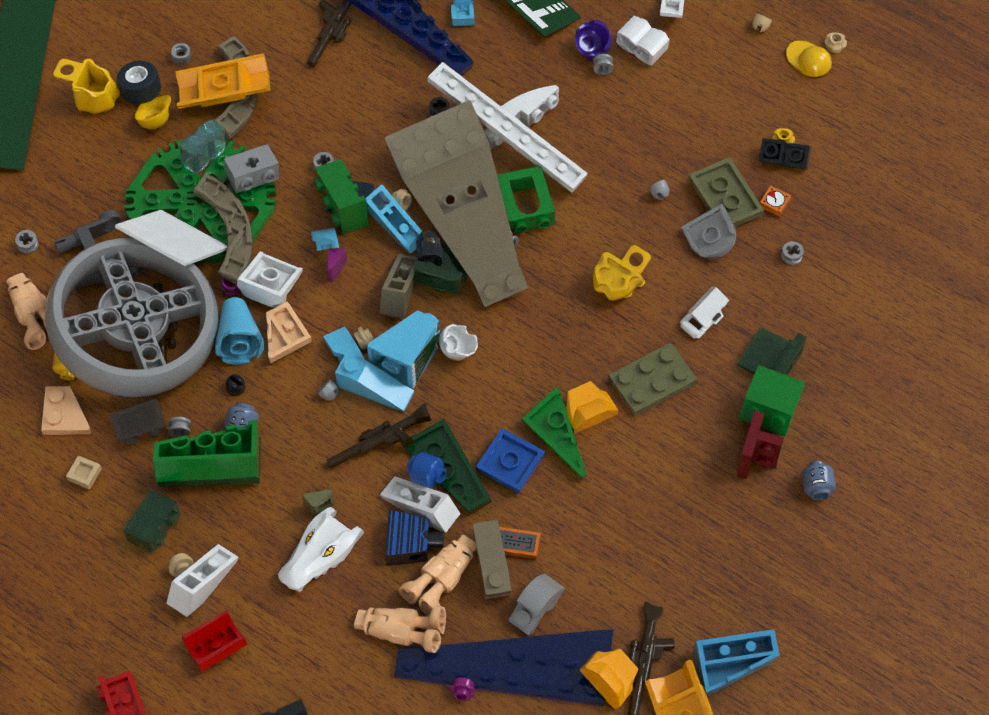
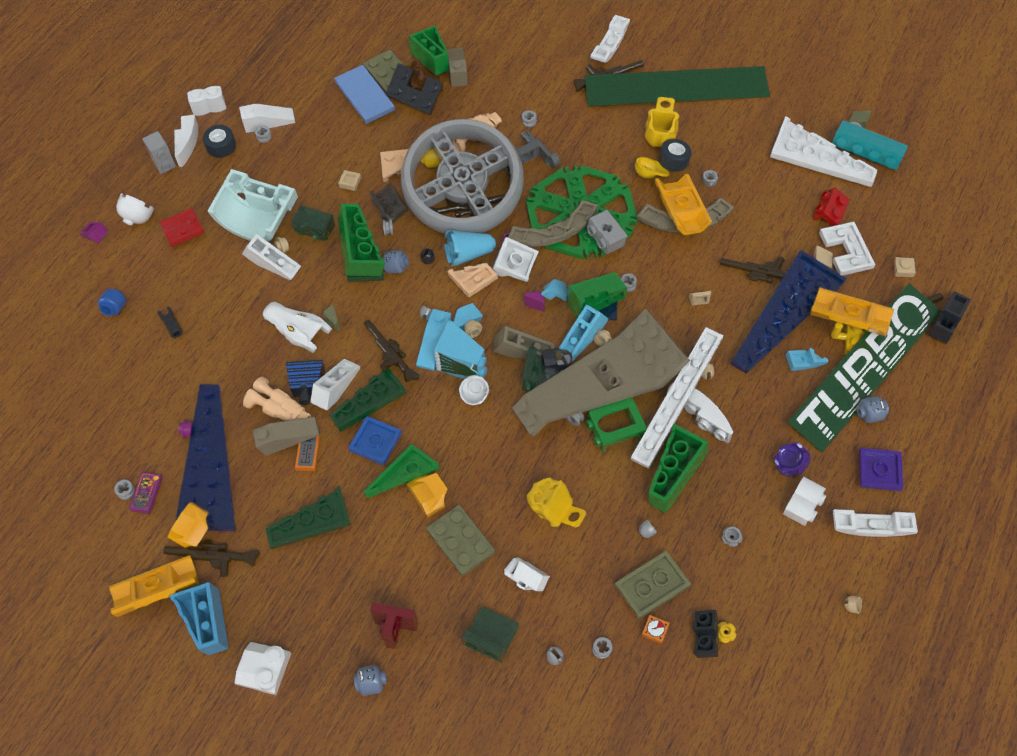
camera: 85 degrees right, 0 degrees up
(118, 594) = (258, 213): none -> light aqua piece
(172, 237) = (529, 188): white piece -> none
(202, 146) = (620, 198): clear light blue brick -> none
(213, 641) = (223, 272): red bracket -> none
(359, 92) = (700, 298): none -> tan slope
(399, 626) = (234, 381): light nougat piece -> none
(426, 470) = (356, 379): blue head -> none
(534, 601) = (254, 469): light grey brick -> none
(593, 147) = (677, 465): none -> green wedge
(603, 64) = (770, 471): light grey bush -> none
(610, 534) = (319, 518): none -> dark green wing
(679, 110) = (734, 532): none -> light grey plate
(711, 233) = (607, 574): light grey tile -> none
(775, 397) = (436, 631): green slope -> none
(794, 598) = (262, 667): none -> white slope
(801, 301) = (551, 658): none -> light grey hinge
(808, 58) = (825, 652): yellow cap -> none
(835, 42) = (849, 681): tan plate -> none

